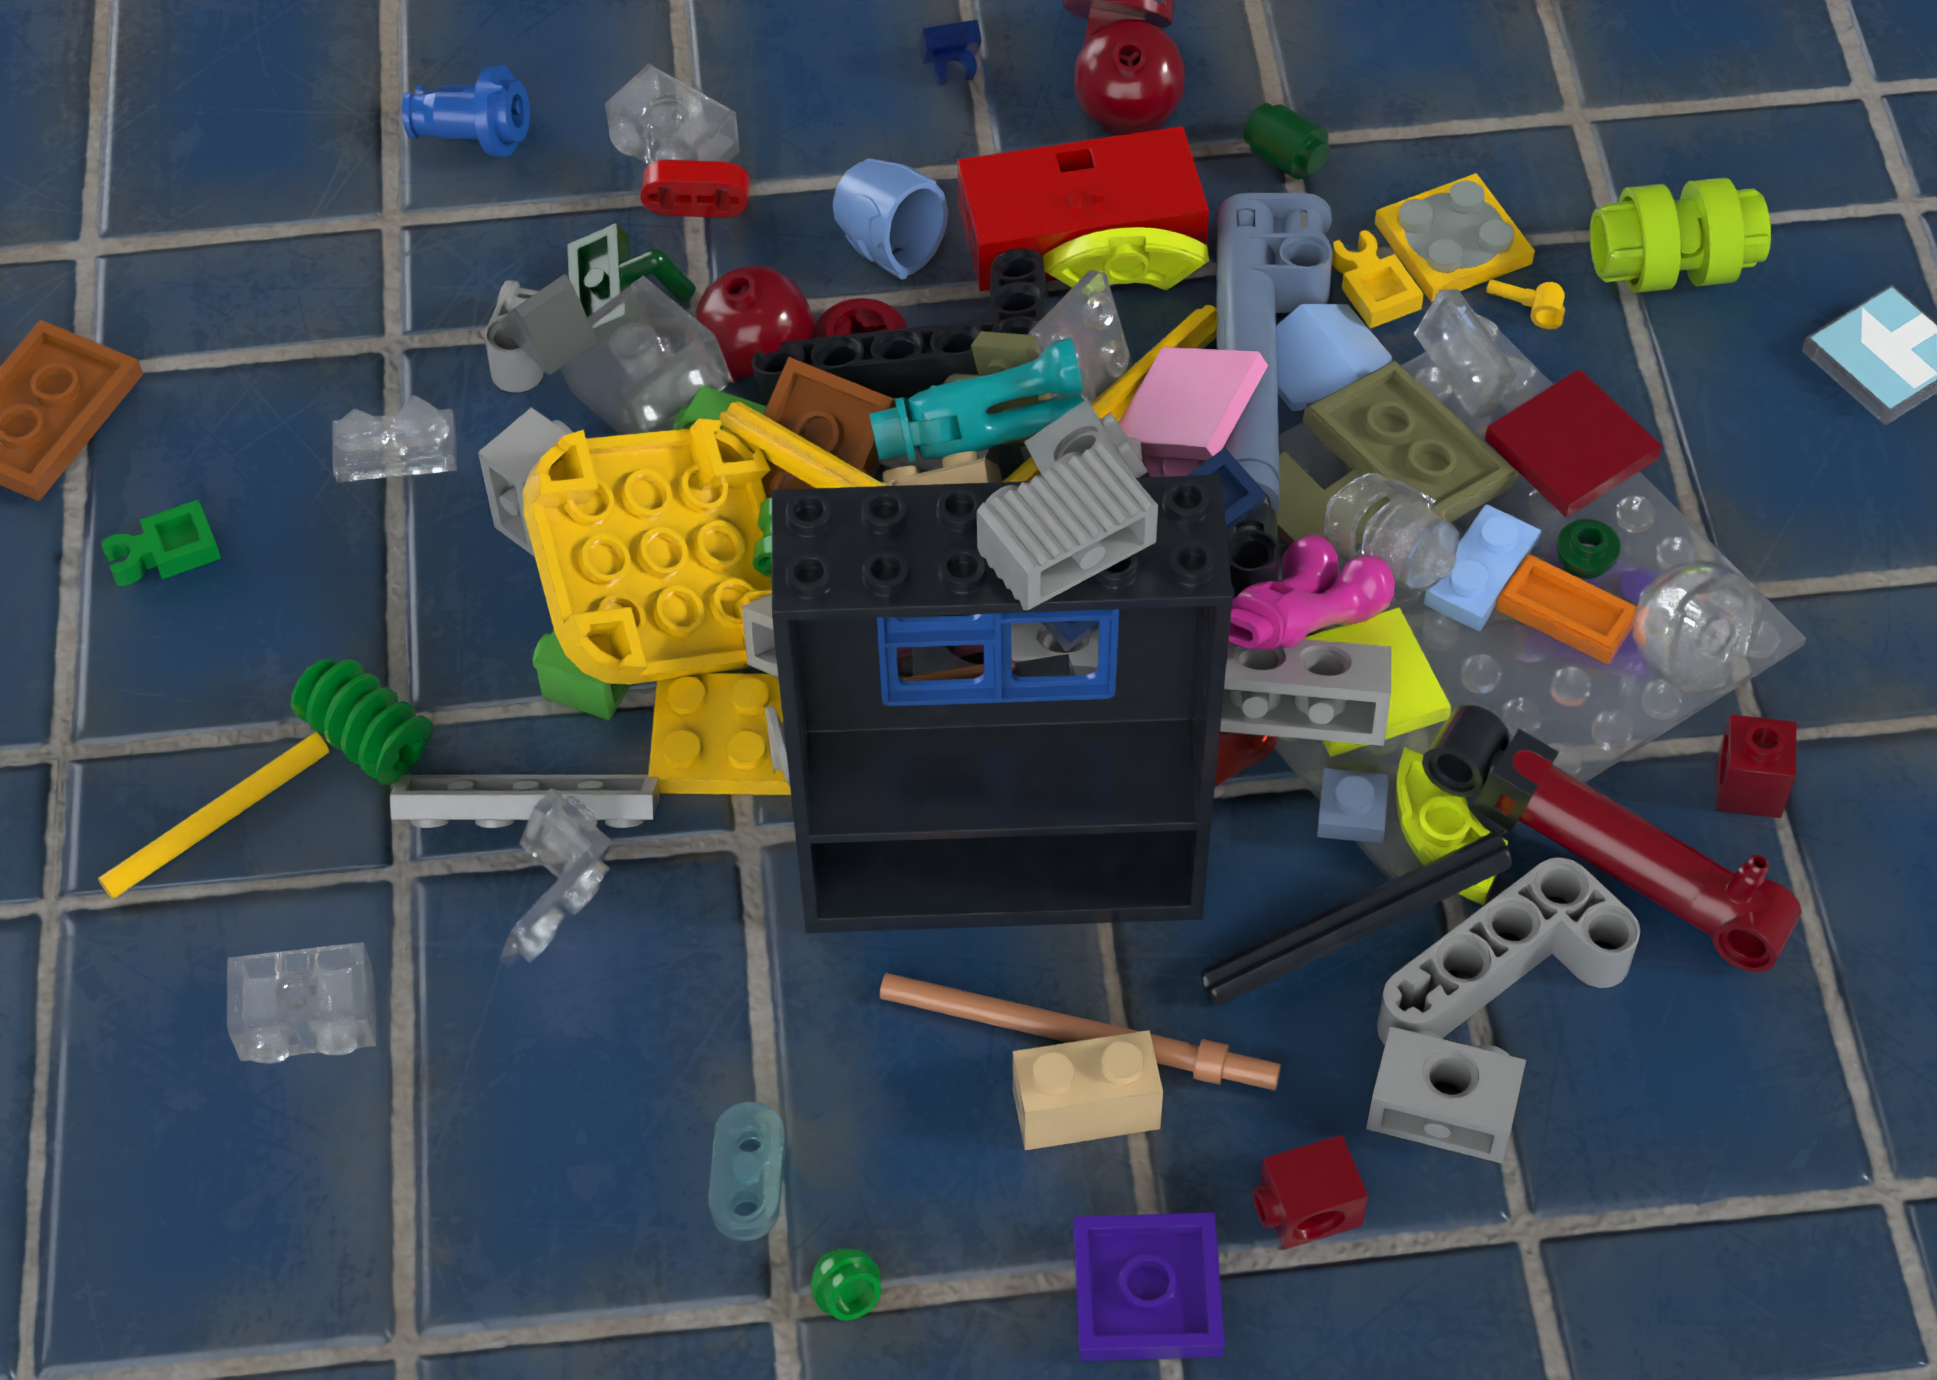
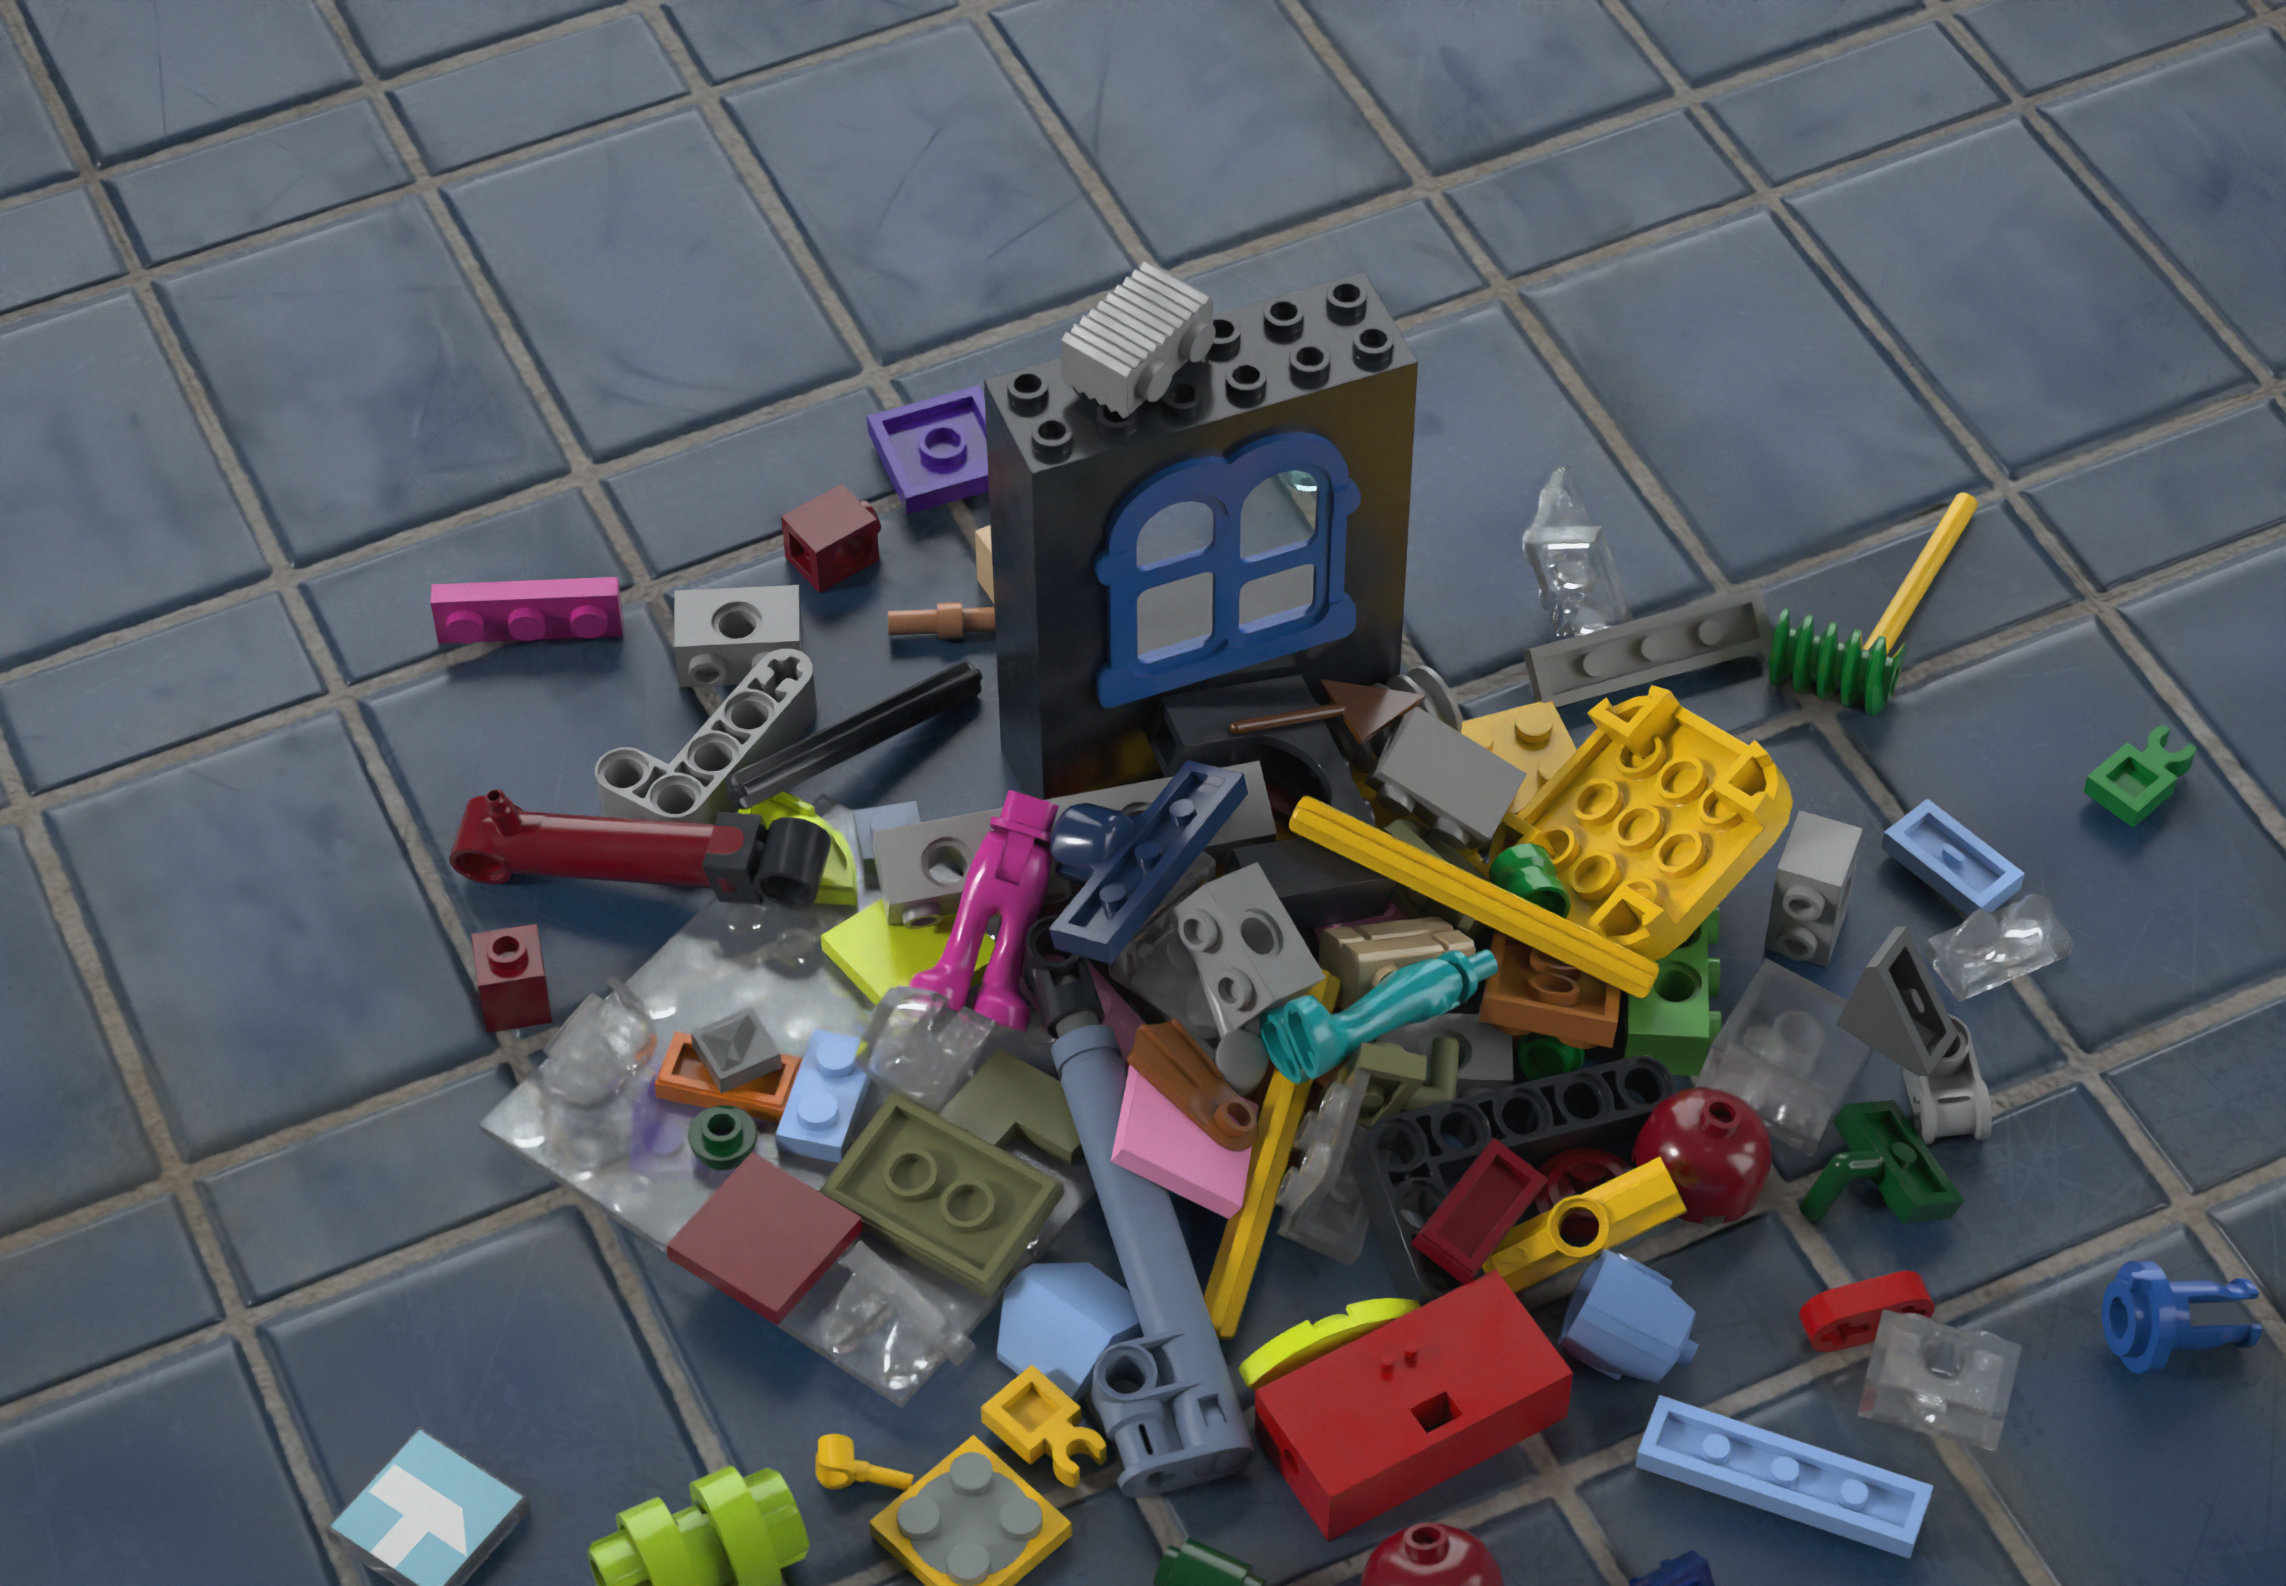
camera: 160 degrees right, 5 degrees down
(301, 1002) = (1733, 449): clear brick -> none
(384, 517) = (1952, 859): none -> light blue plate
(824, 102) = (1784, 1476): none -> light blue plate
(891, 275) = (1621, 1206): none -> yellow piece
(971, 281) = (1479, 1211): none -> dark red tile
(1169, 428) = (1193, 1083): none -> dark orange piece
(1561, 599) = (736, 1049): none -> dark grey tile
(1674, 1199) = (527, 610): none -> dark pink plate

